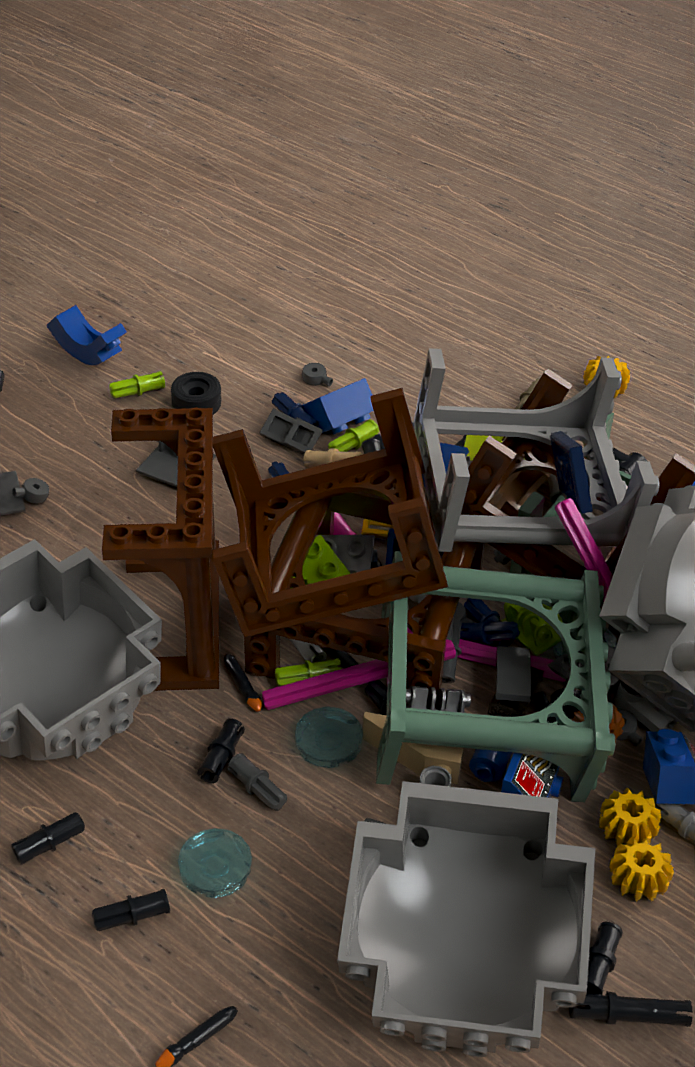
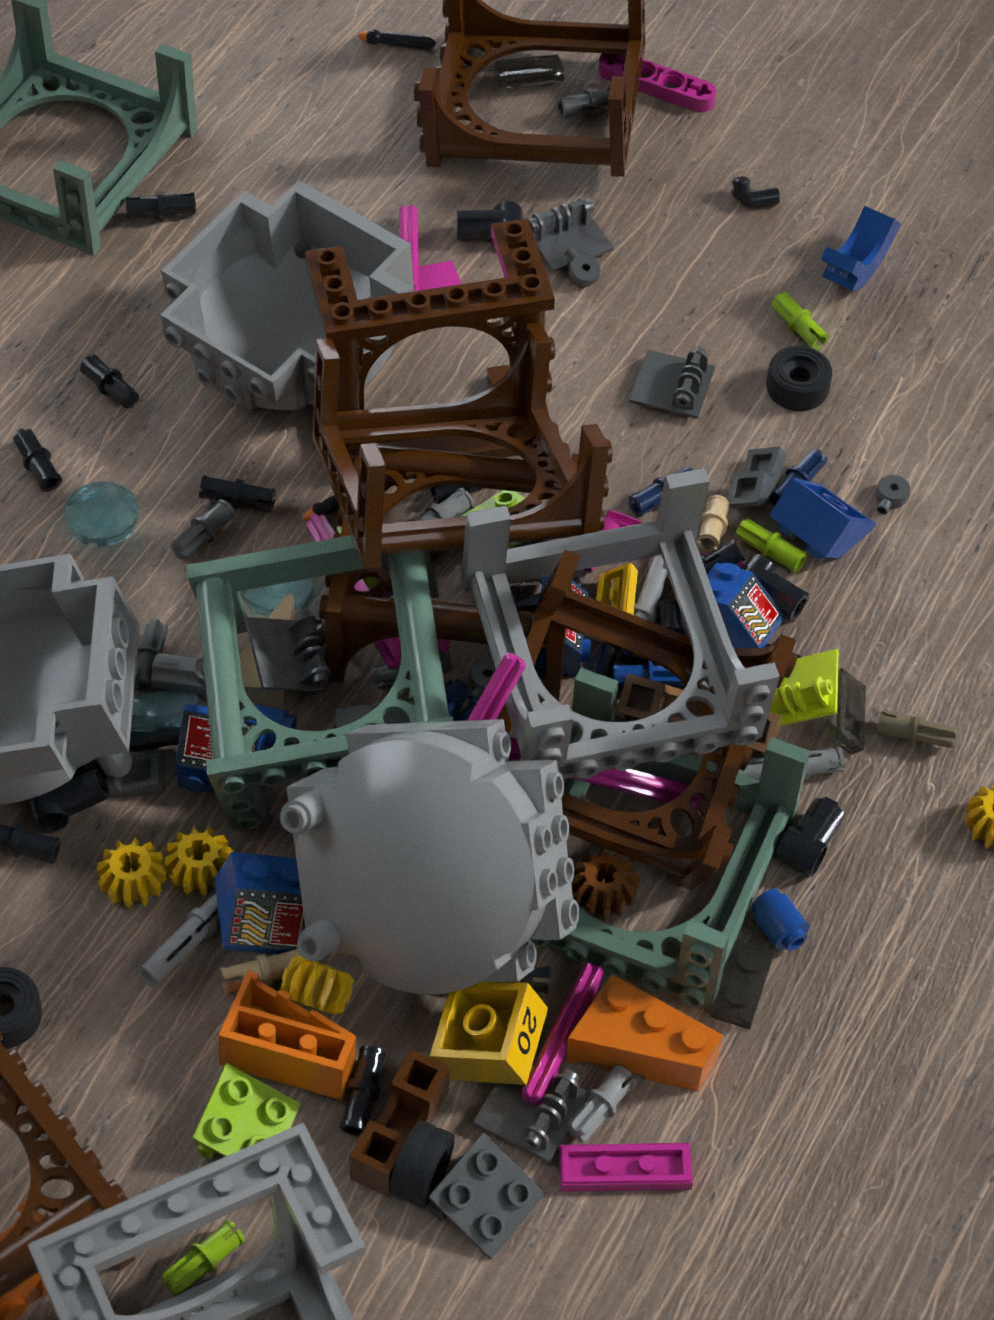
camera: 80 degrees right, 10 degrees up
(571, 471) = (602, 678): dark blue tile -> none

